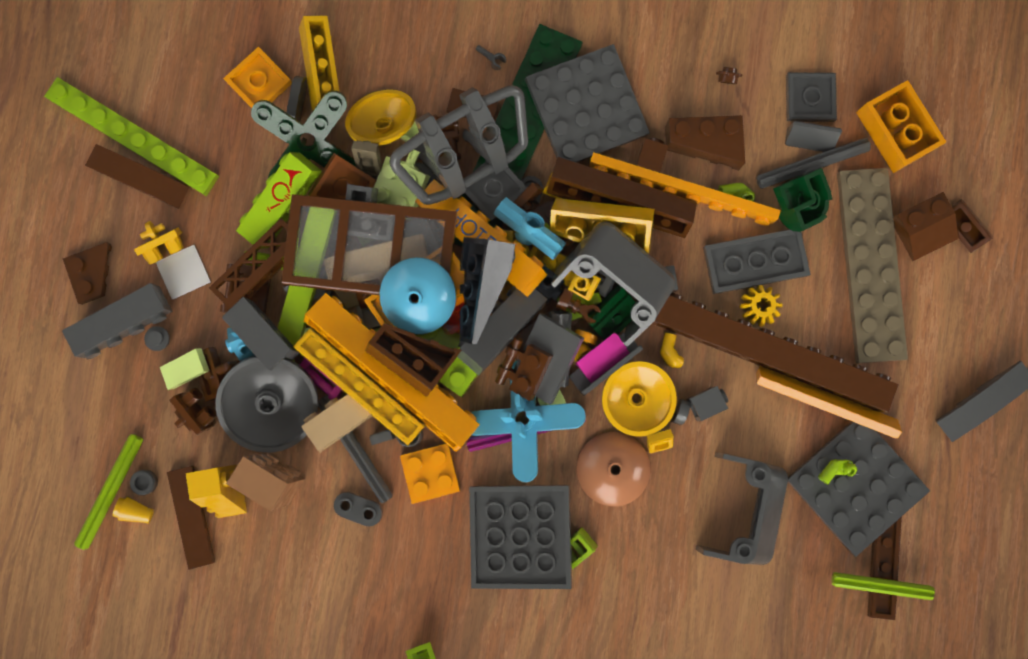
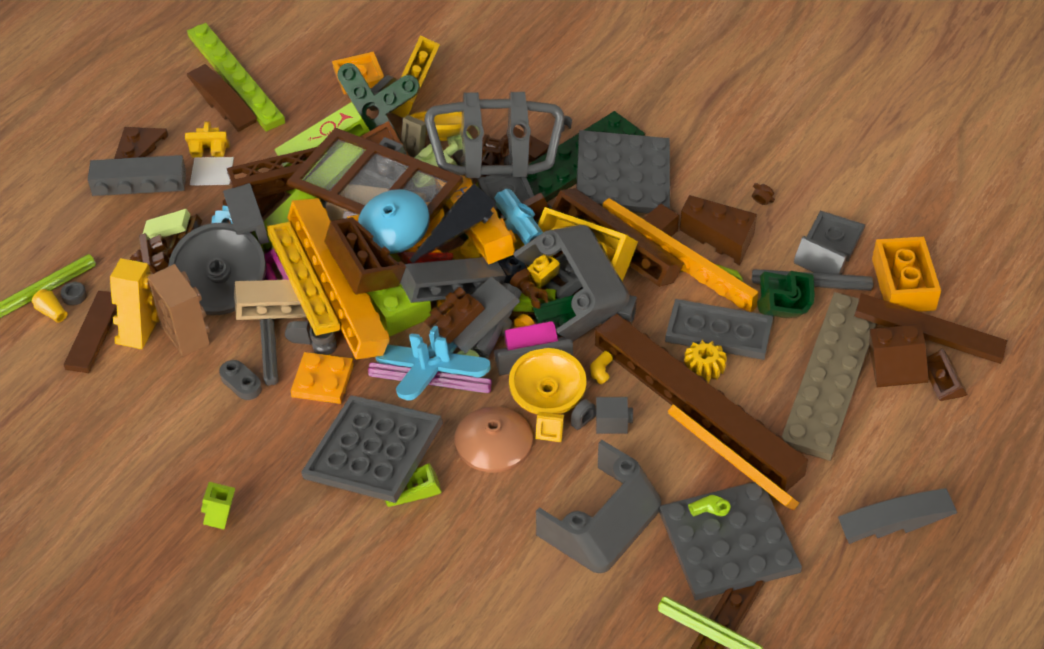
camera: 25 degrees right, 35 degrees down
(157, 338) = (159, 203): dark grey plate -> none
(940, 179) = (933, 328): none -> reddish brown tile

